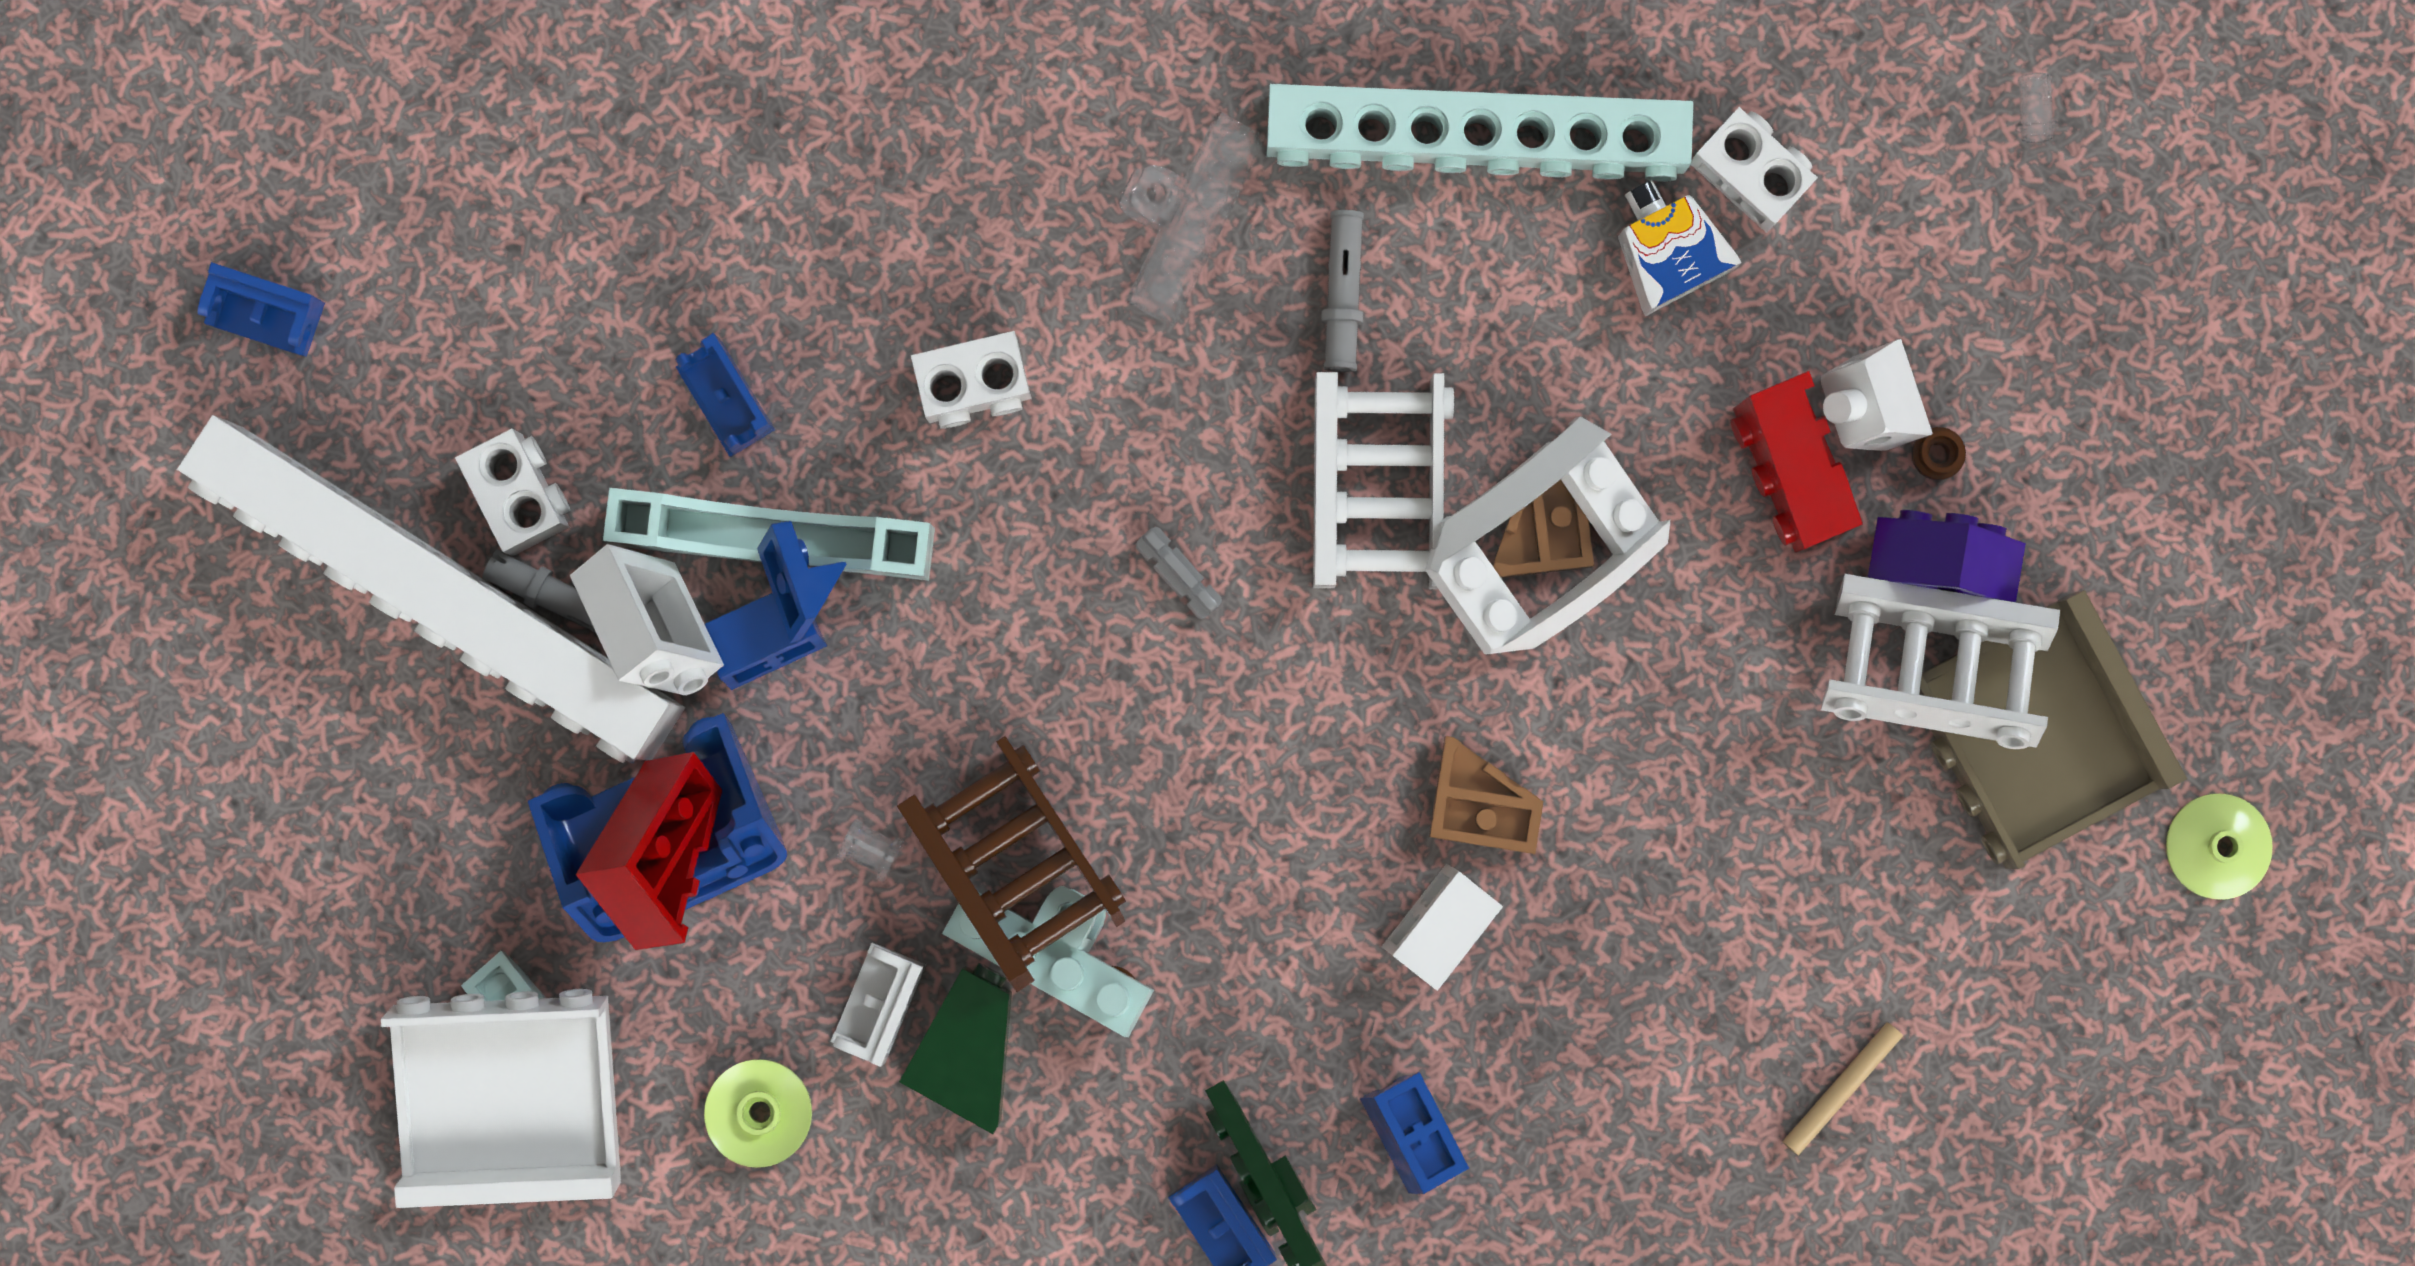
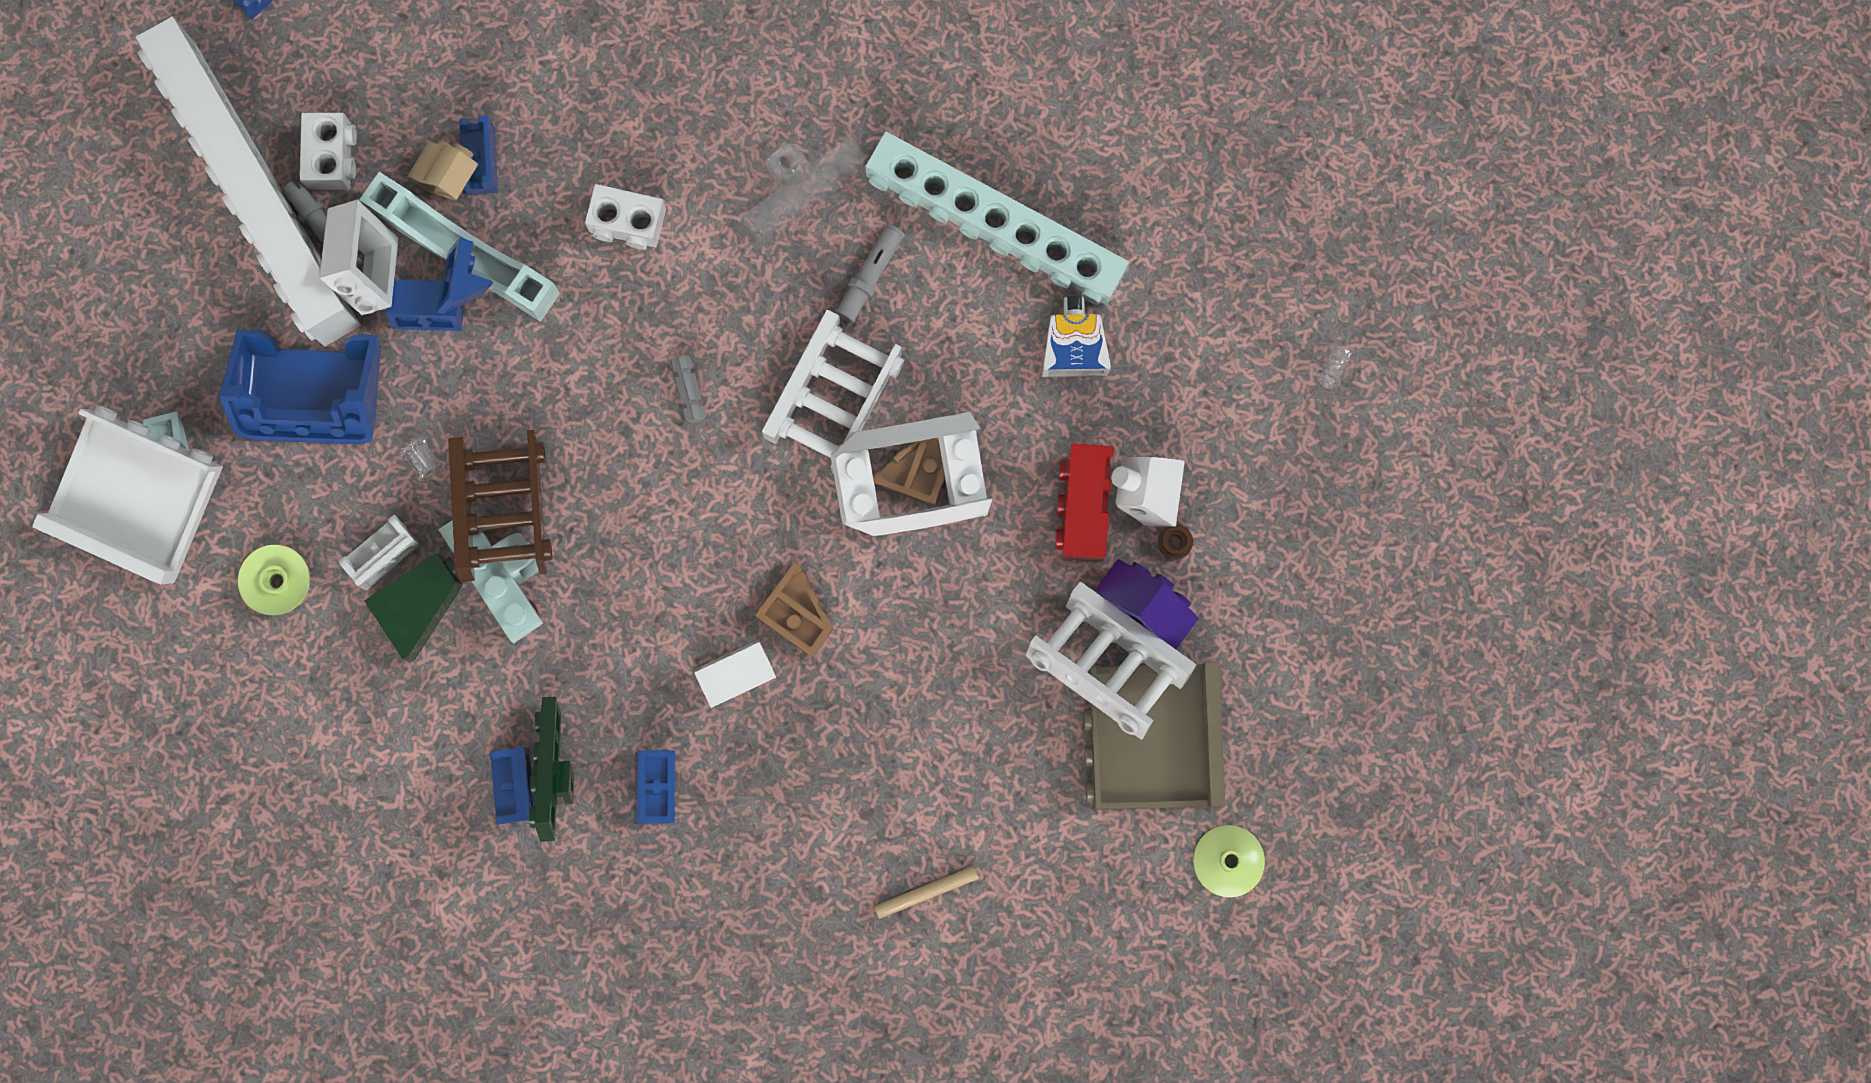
camera: 25 degrees right, 5 degrees down
(650, 850) = (288, 389): red wedge -> none
(691, 438) = (443, 169): none -> tan brick
(1744, 179) = (1139, 322): white brick -> none

